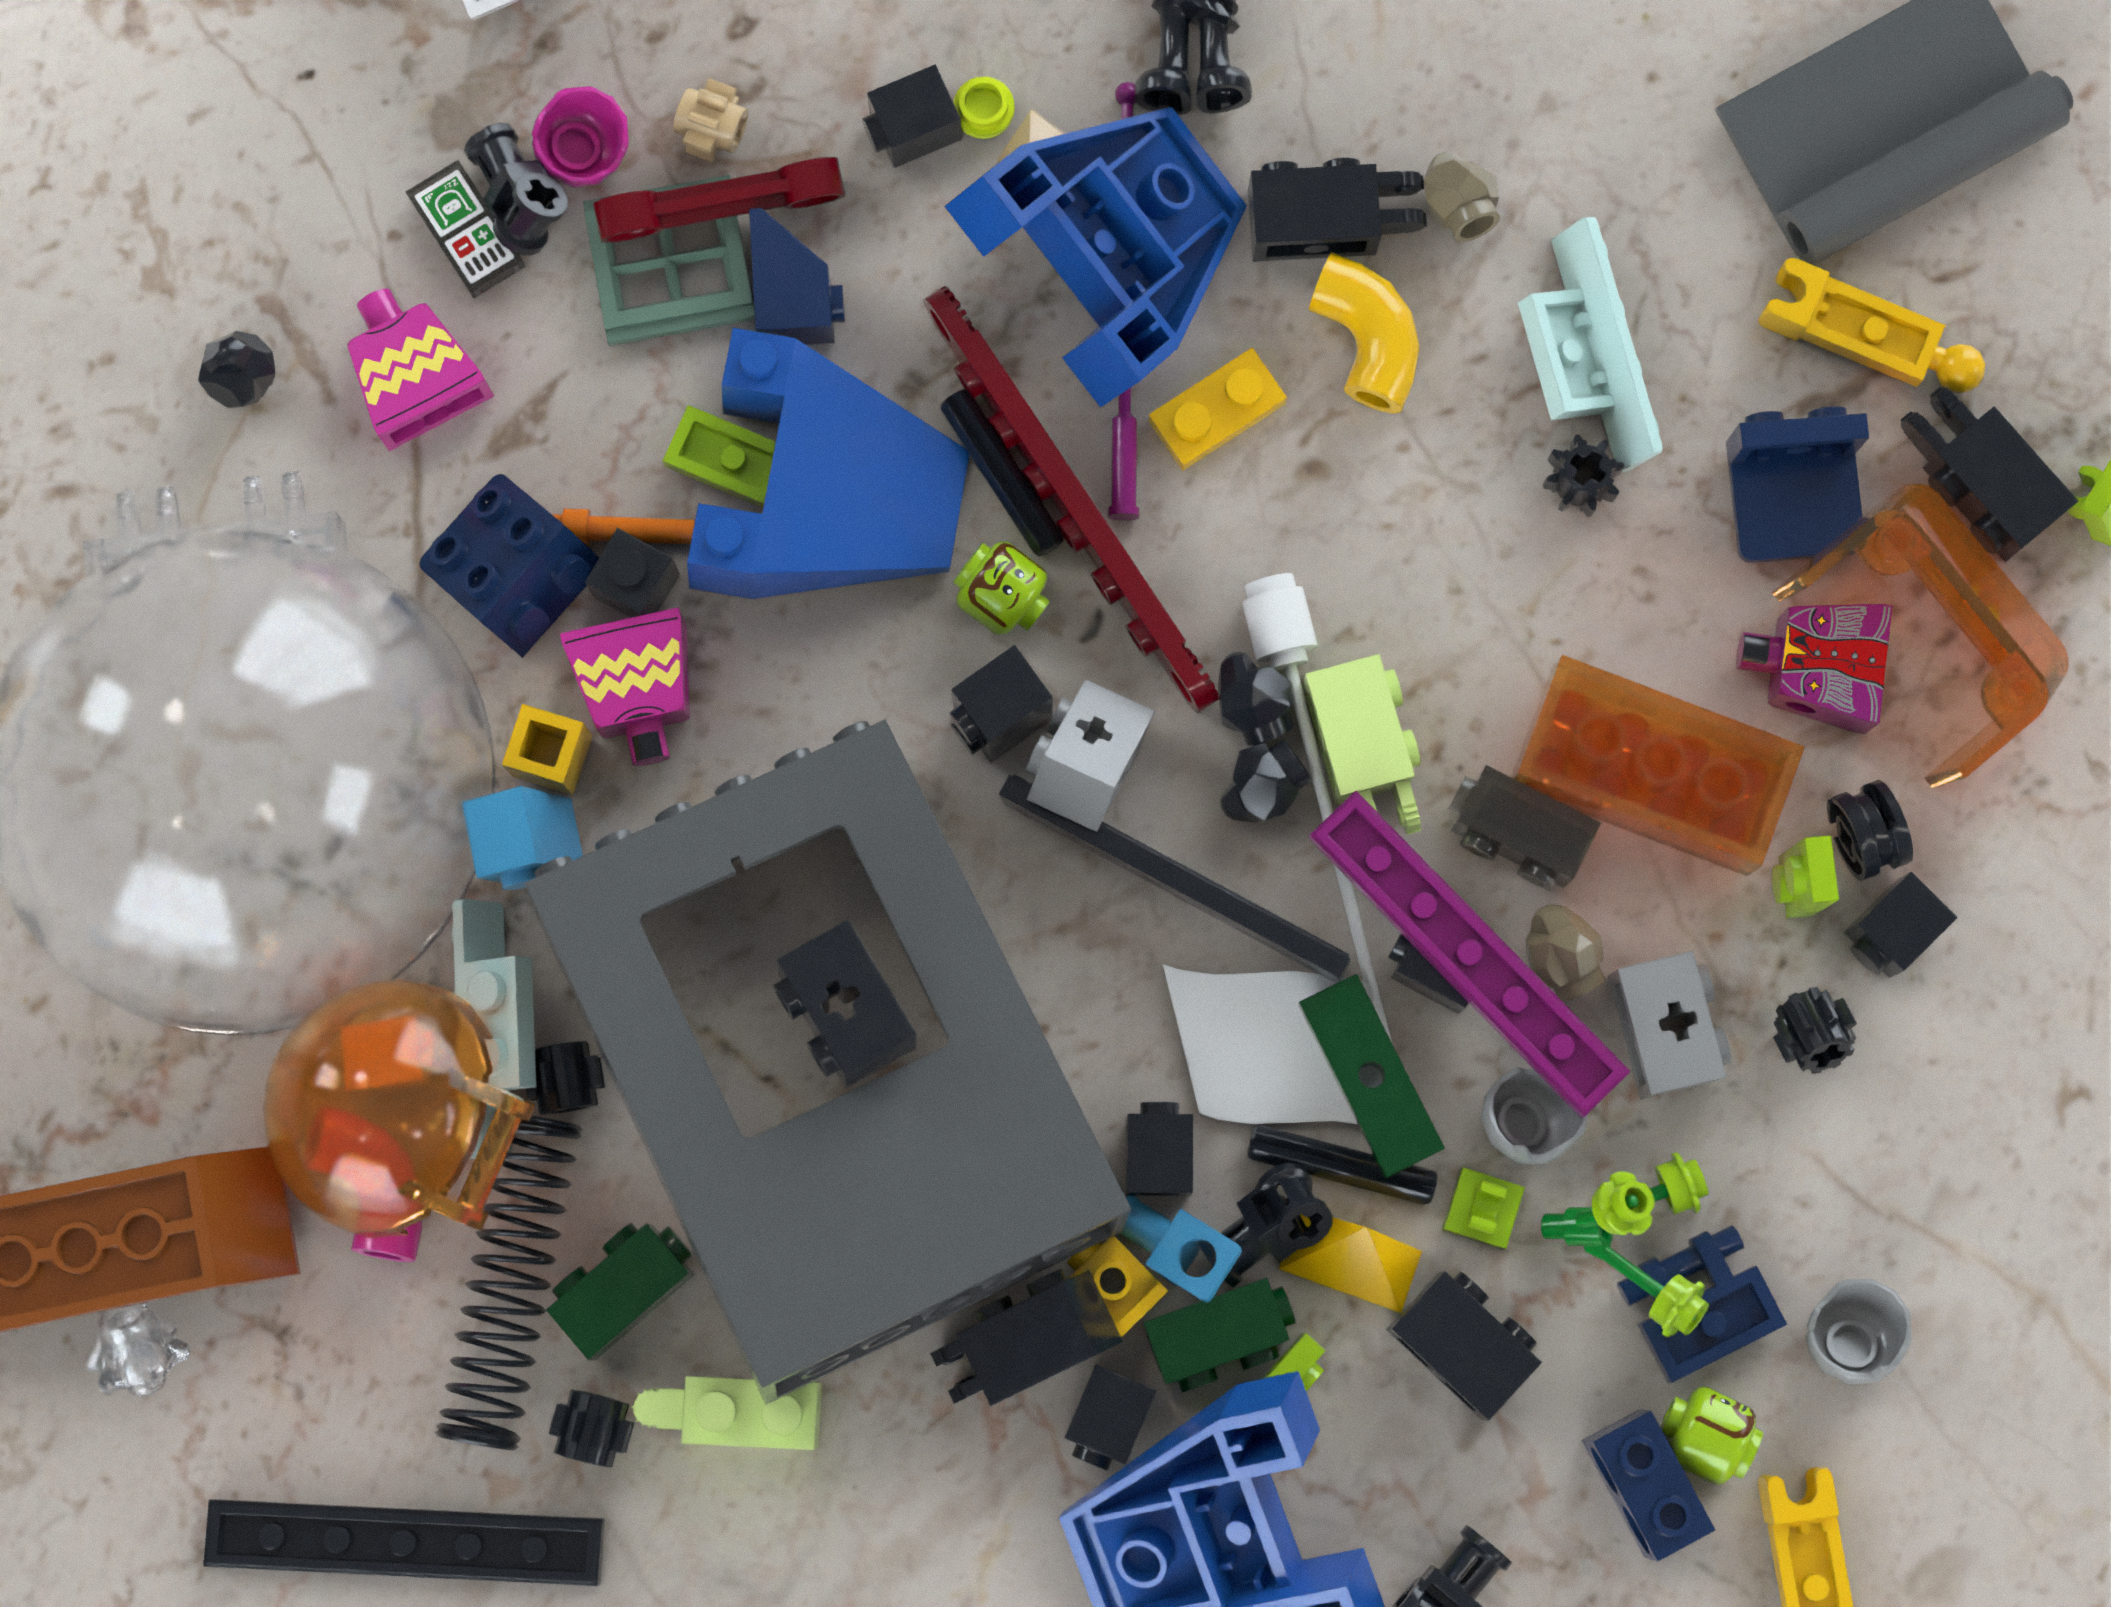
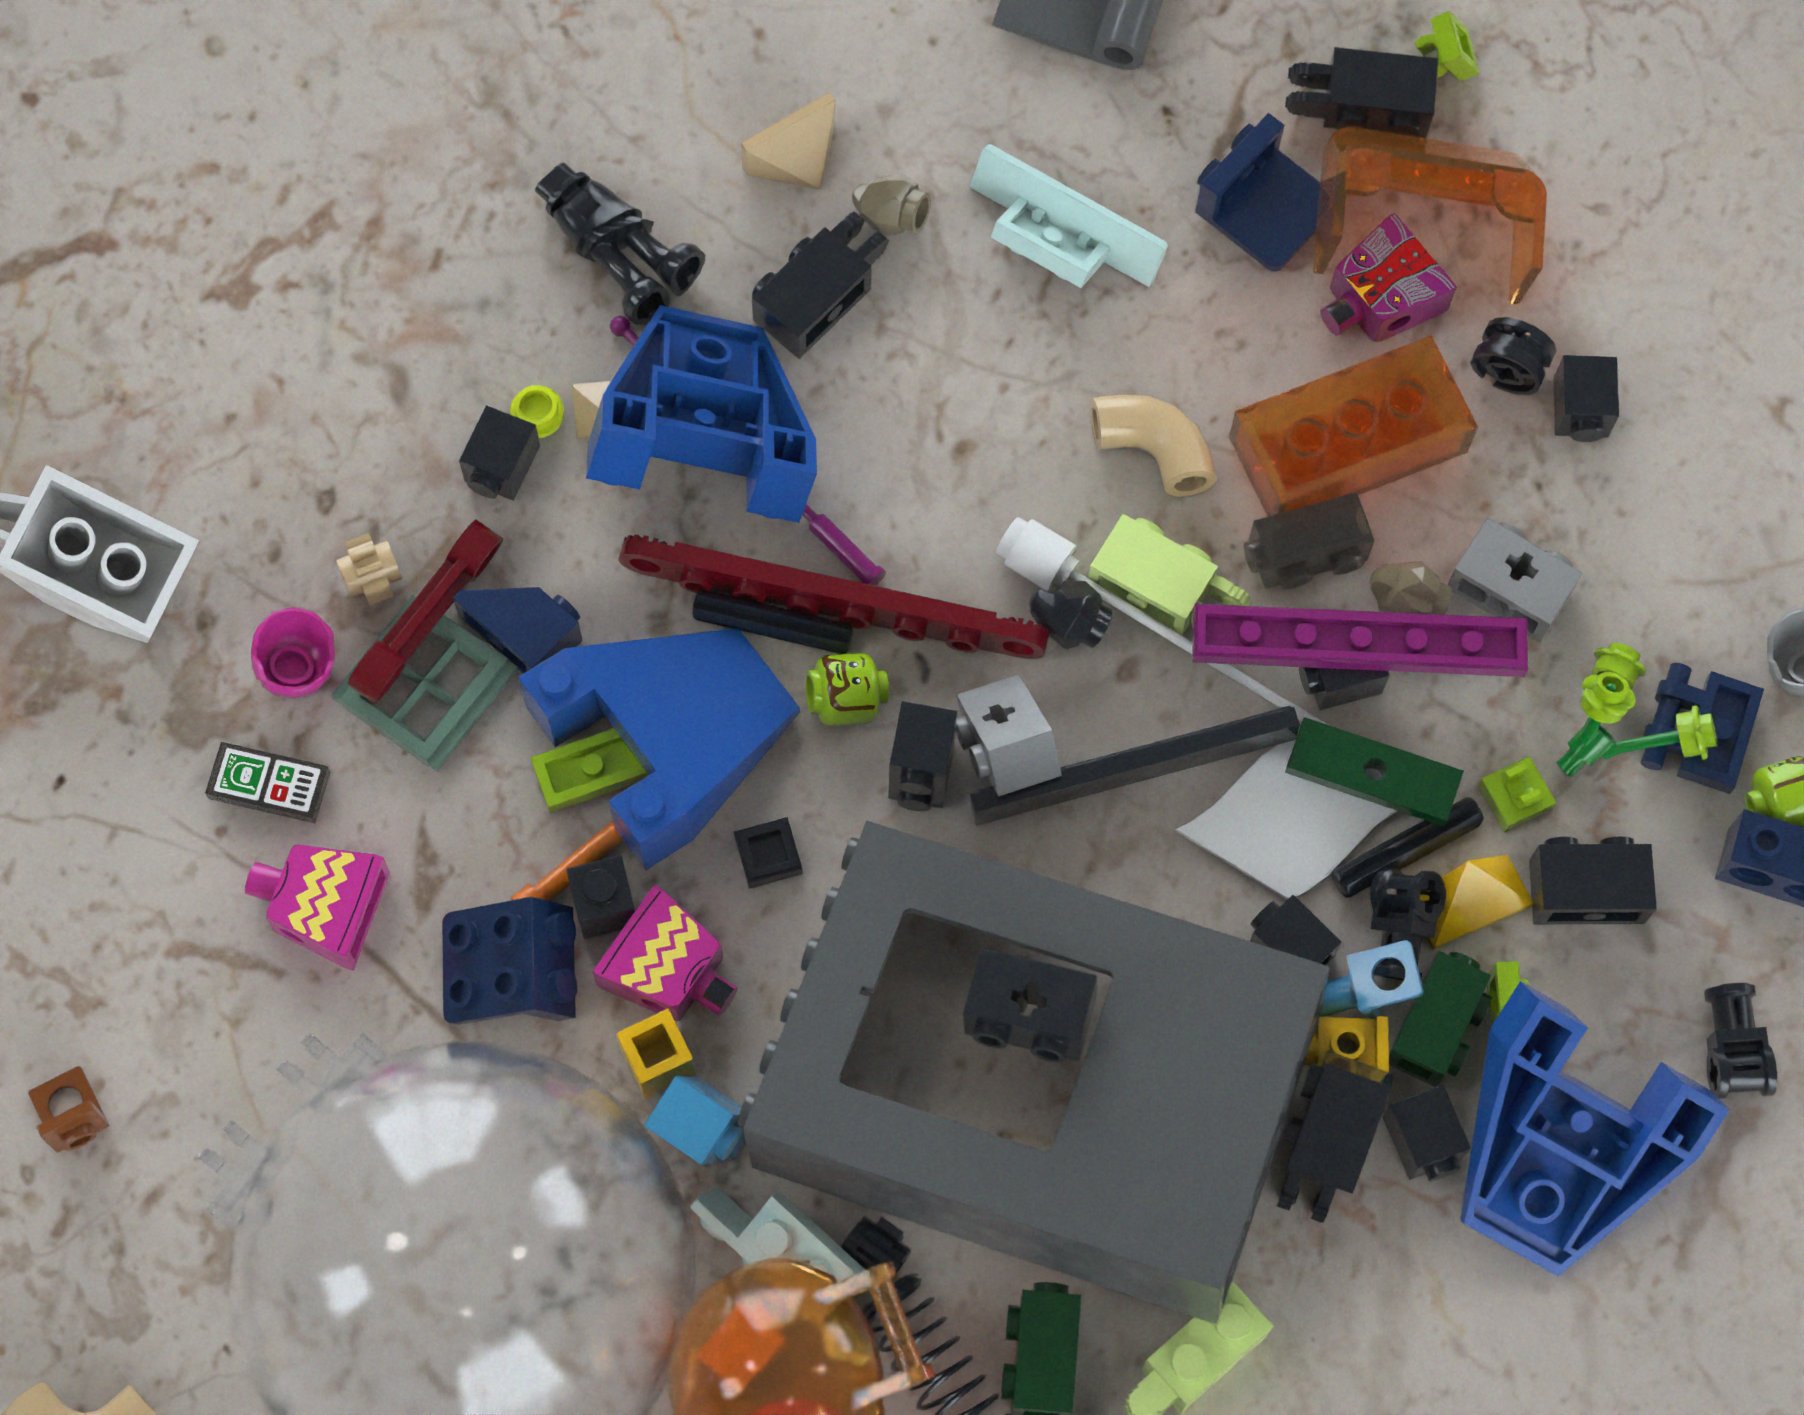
camera: 45 degrees left, 10 degrees down
(50, 379) = (75, 1126): none -> dark orange bracket
(237, 369) = (202, 1004): black rock -> none
(520, 191) = (282, 723): black connector -> none
(808, 666) = (768, 852): none -> black tile
(1217, 409) = (868, 464): yellow plate -> none
(1264, 783) = (1128, 658): black rock -> none
(1381, 327) = (919, 323): yellow cylinder -> none
(1431, 67) = (794, 147): none -> tan slope
(1493, 614) = (1162, 432): none -> tan cylinder
(1529, 1119) = (1492, 708): light grey hair -> none
(1566, 466) = (1146, 298): black gear -> none
(1806, 877) = (1508, 413): lime plate -> none
(1815, 1030) = (1602, 501): black gear -> none
(1868, 329) = (1210, 73): yellow plate -> none

